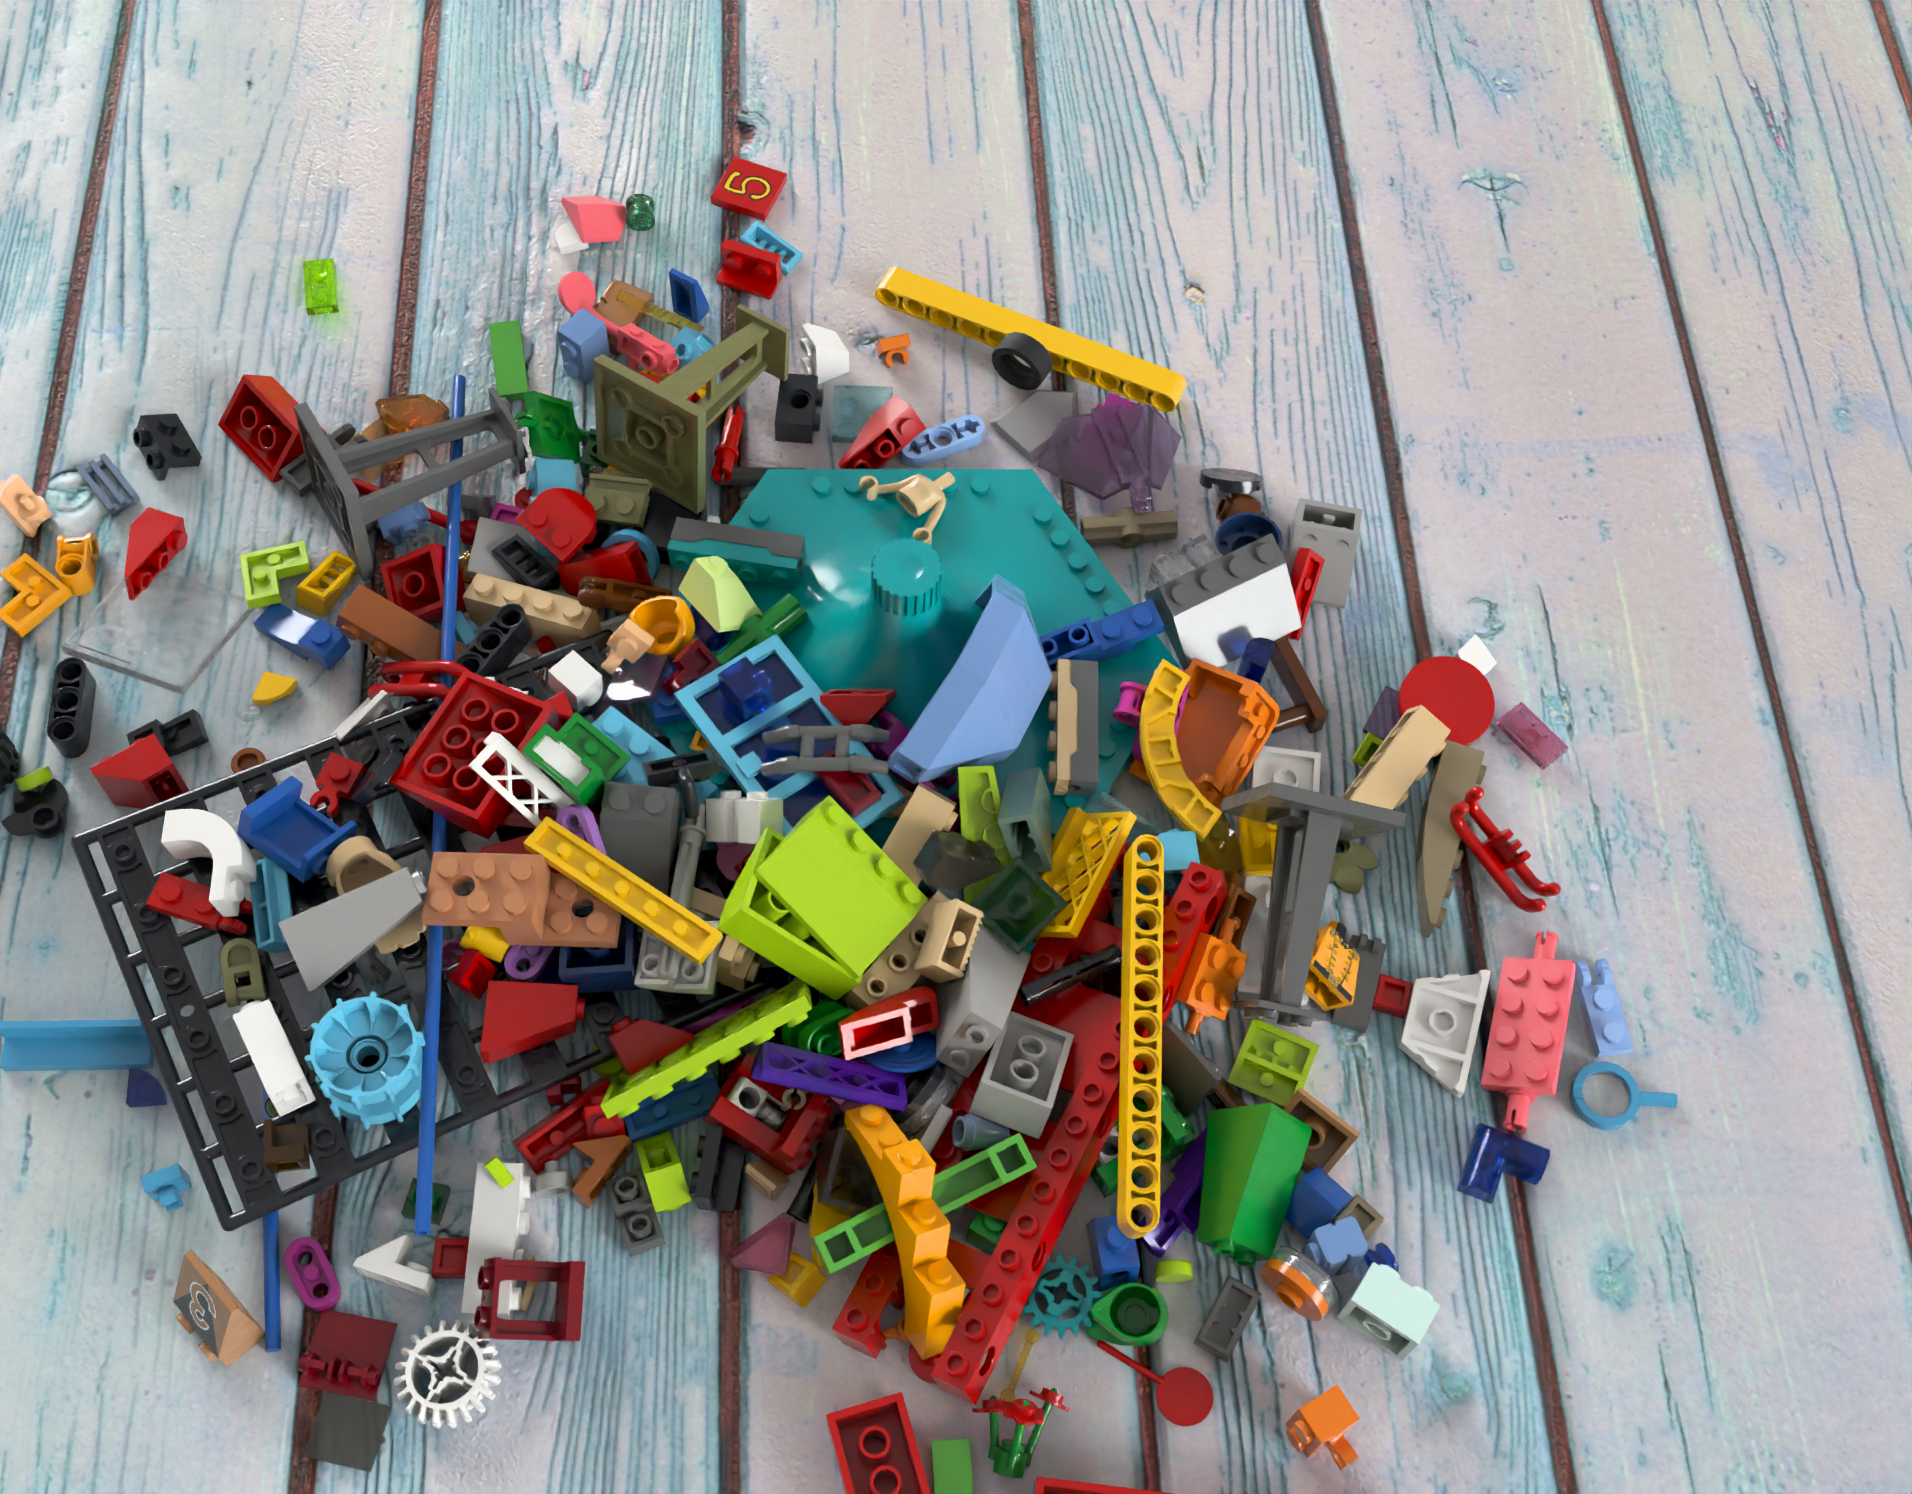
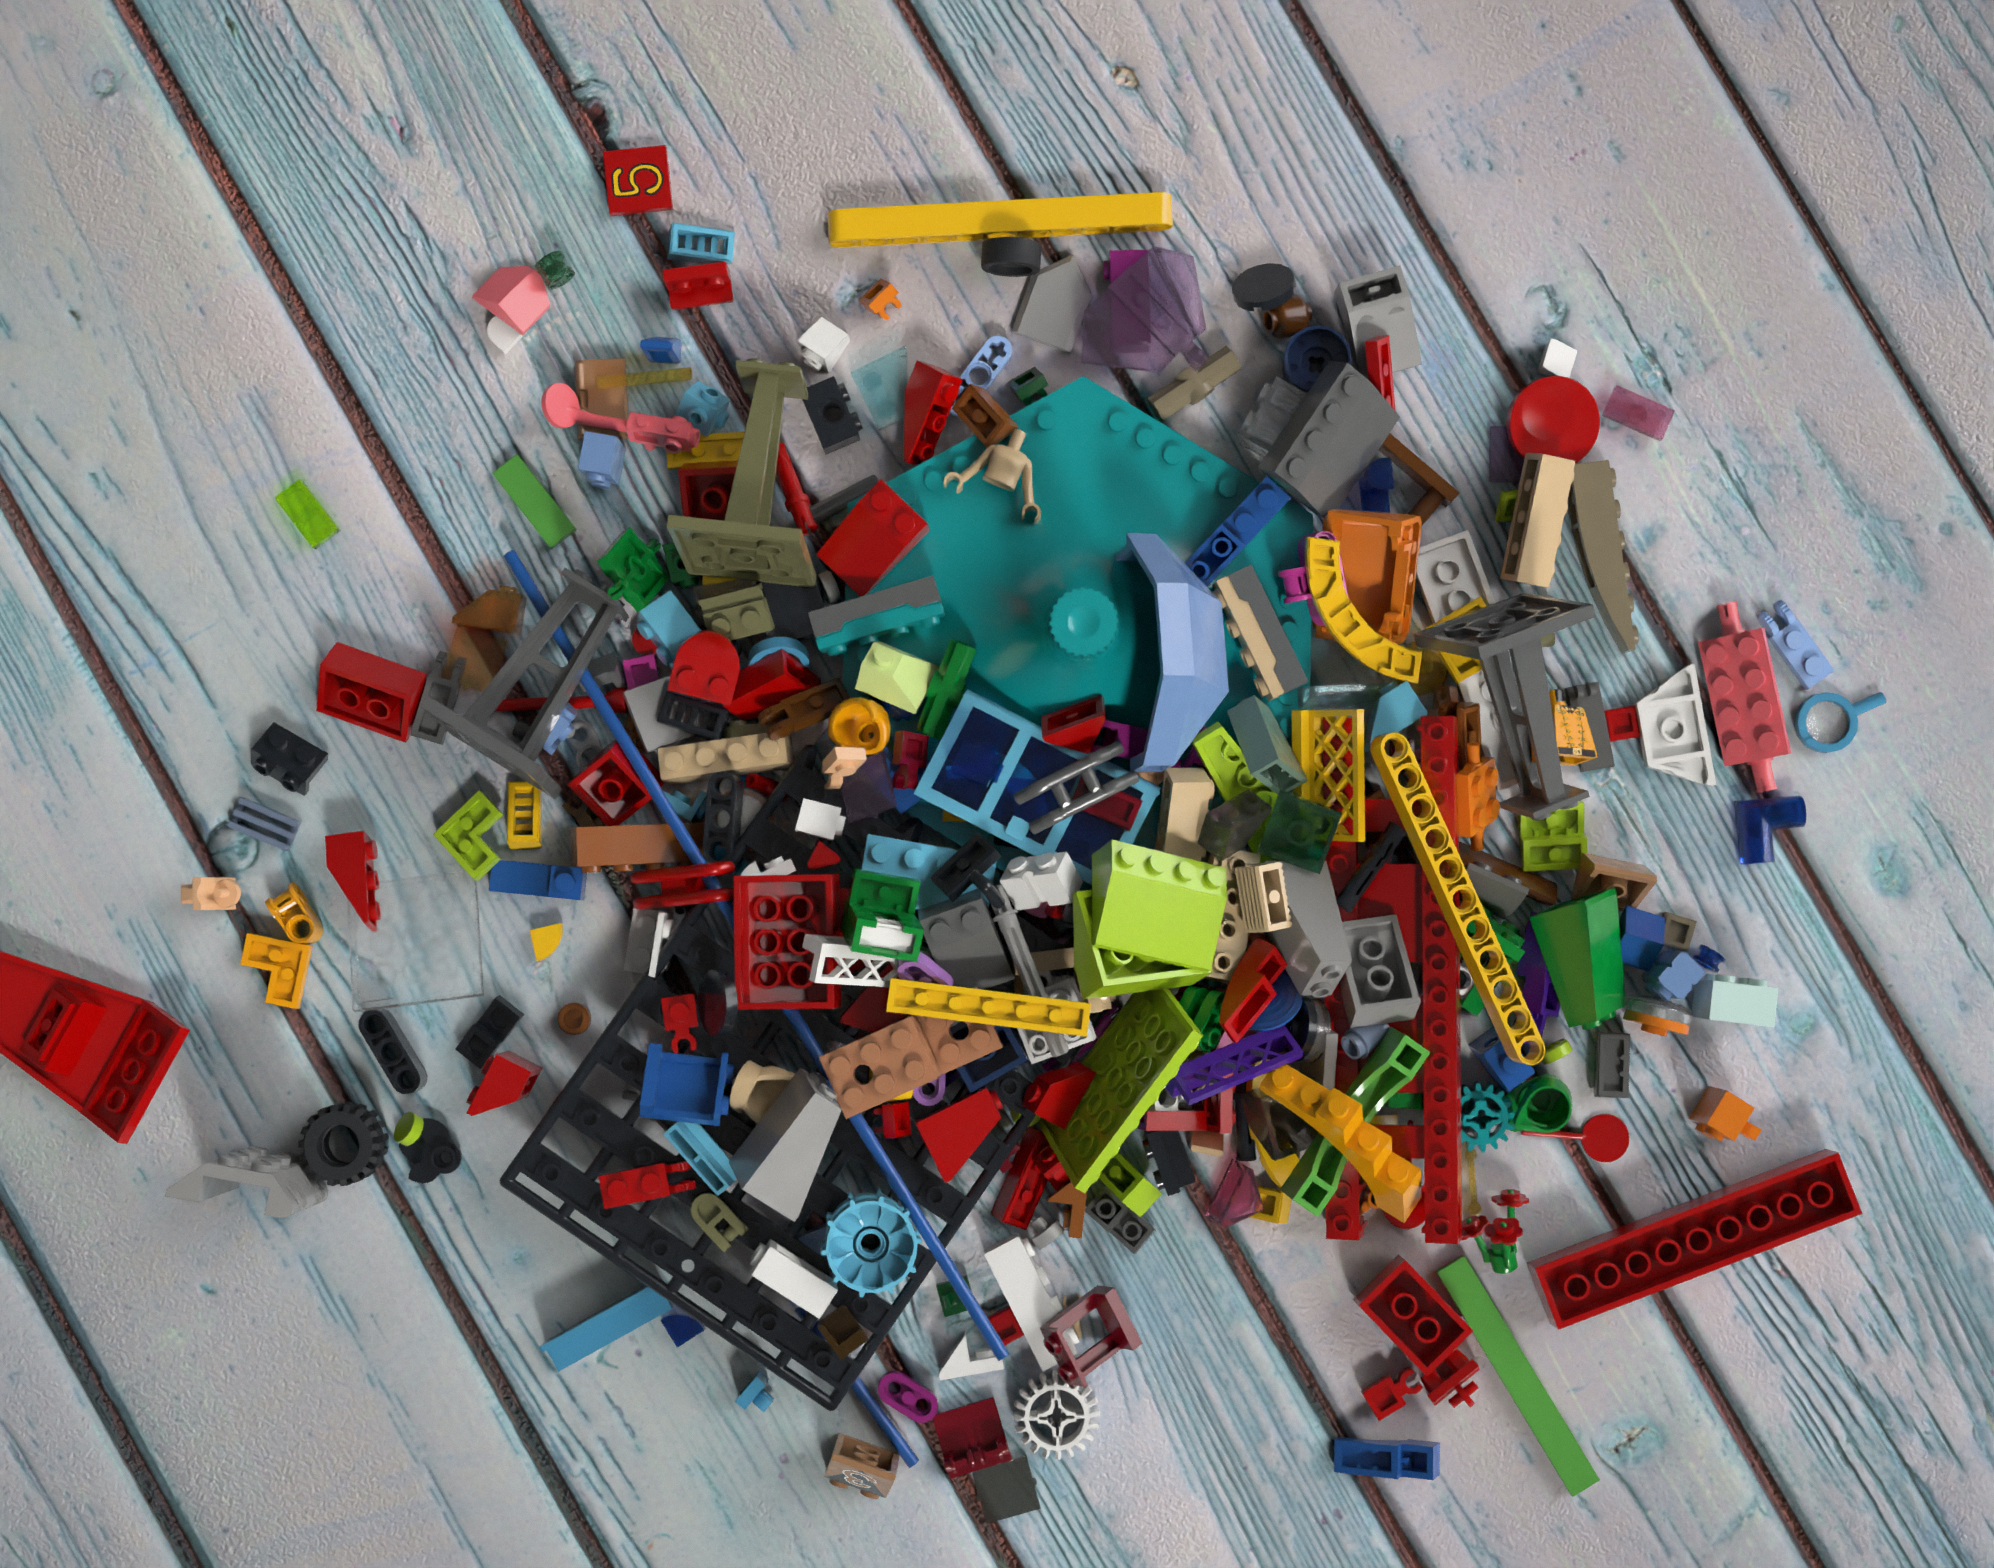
camera: 25 degrees left, 25 degrees up
(204, 834) = (640, 1133): white arch -> none
(499, 1171) = (1007, 1256): lime piece -> none
(774, 493) = (873, 539): none -> red slope
(927, 457) = (984, 416): none -> dark orange slope
(981, 461) = (1027, 384): none -> dark green tile
(1499, 854) = (1660, 553): red piece -> none

